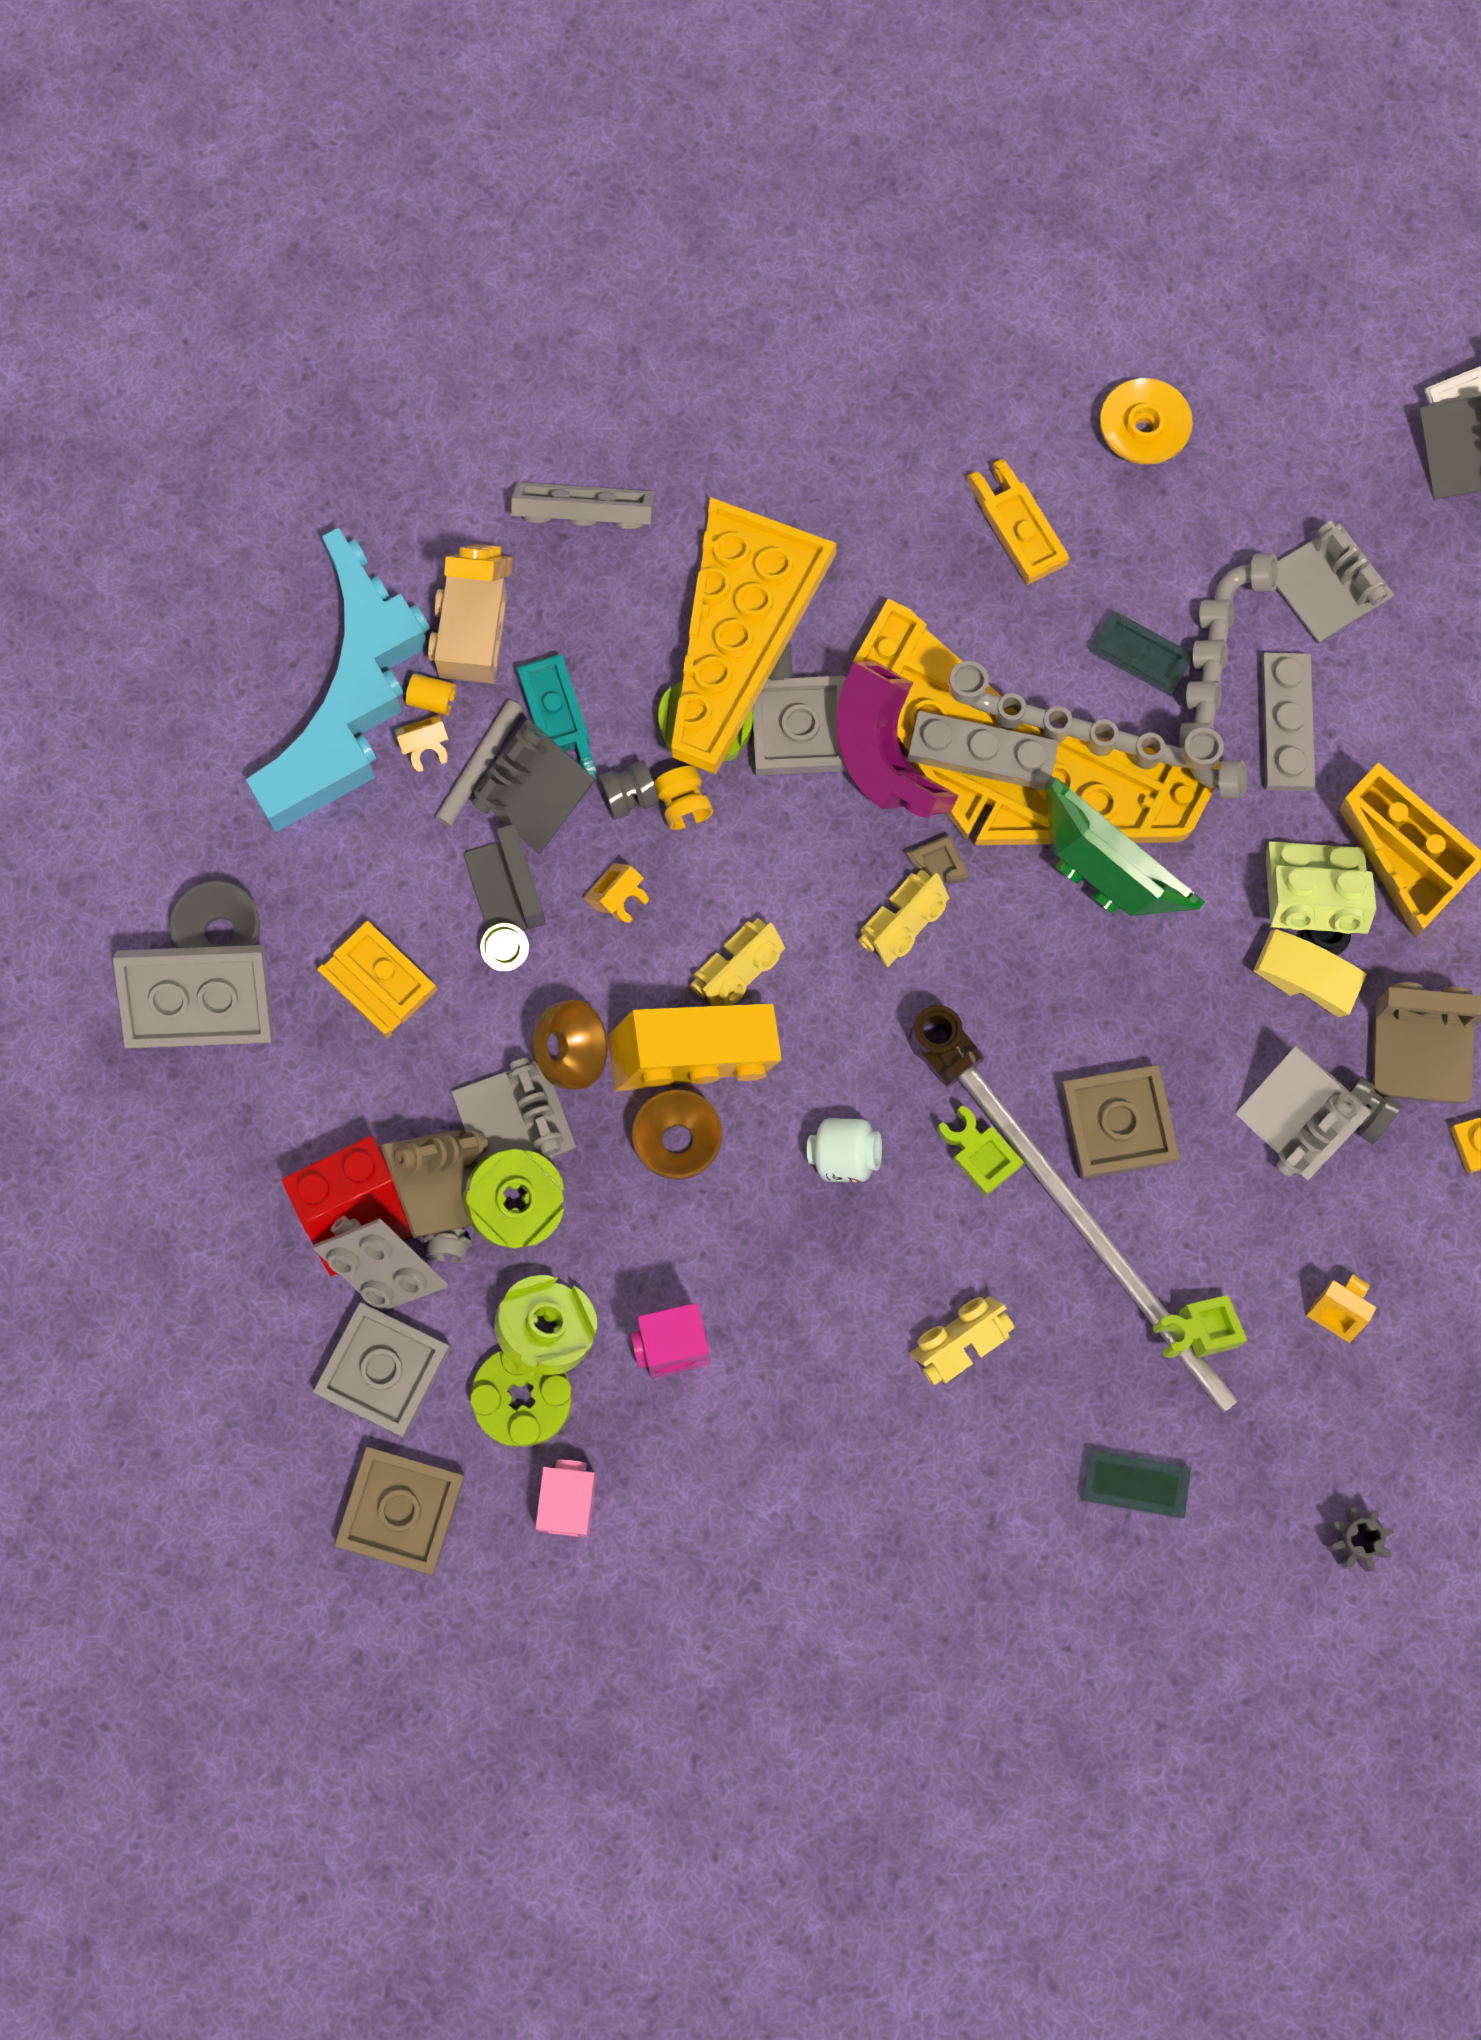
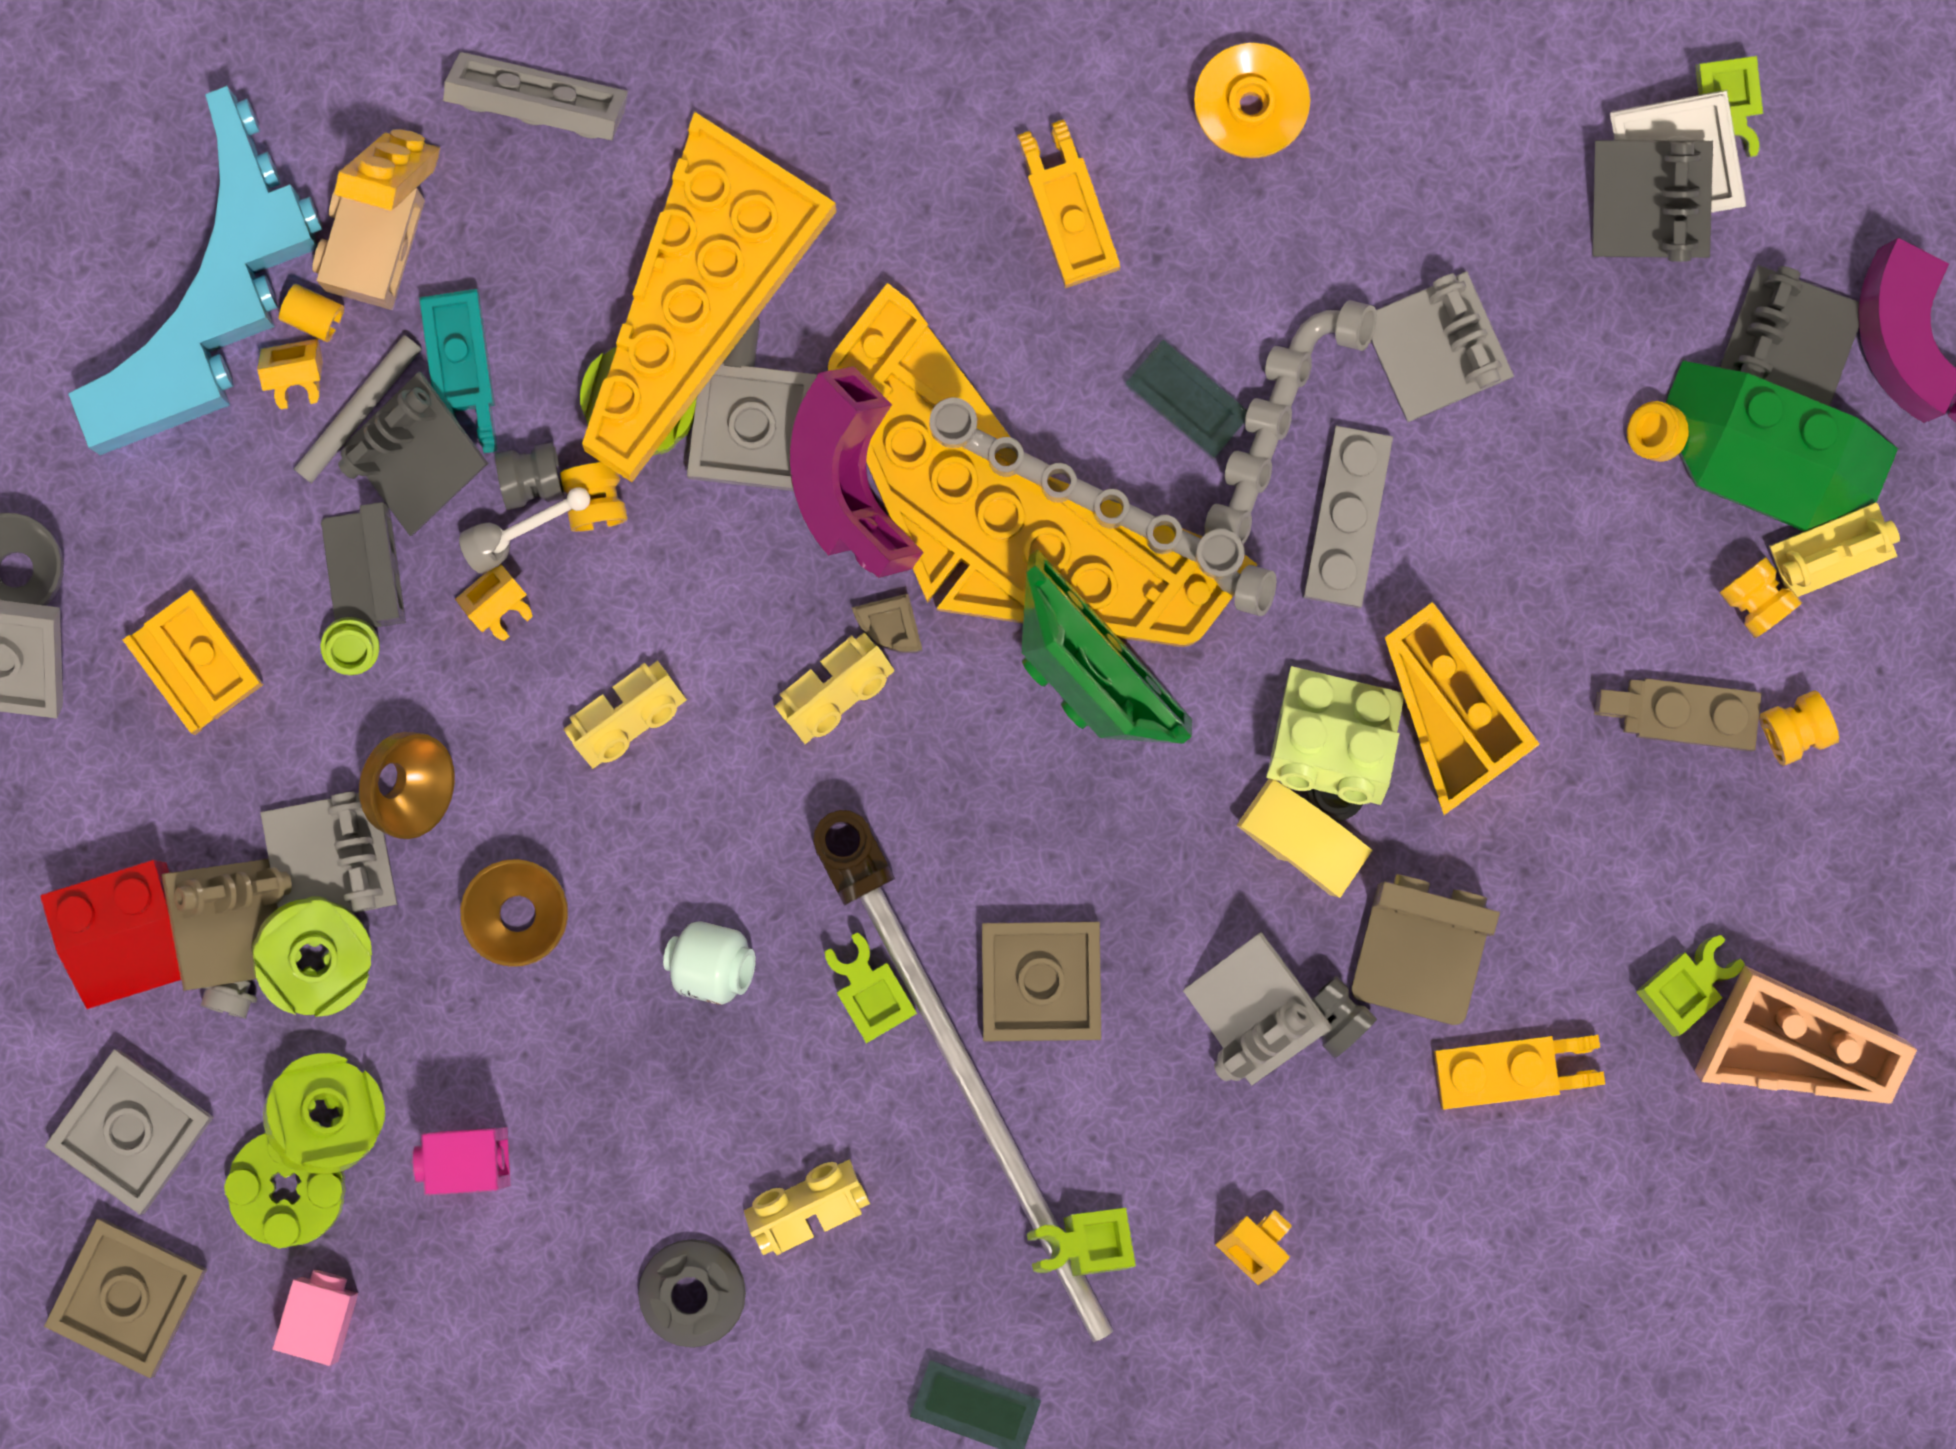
camera: 10 degrees right, 10 degrees up
(378, 1263) = (135, 1012): light grey hinge -> none
(605, 847) = (488, 545): none -> hinge
(693, 1045) = (553, 811): yellow wedge -> none
(871, 1455) = (723, 1285): none -> dark grey piece
(982, 750) = (963, 499): light grey plate -> none

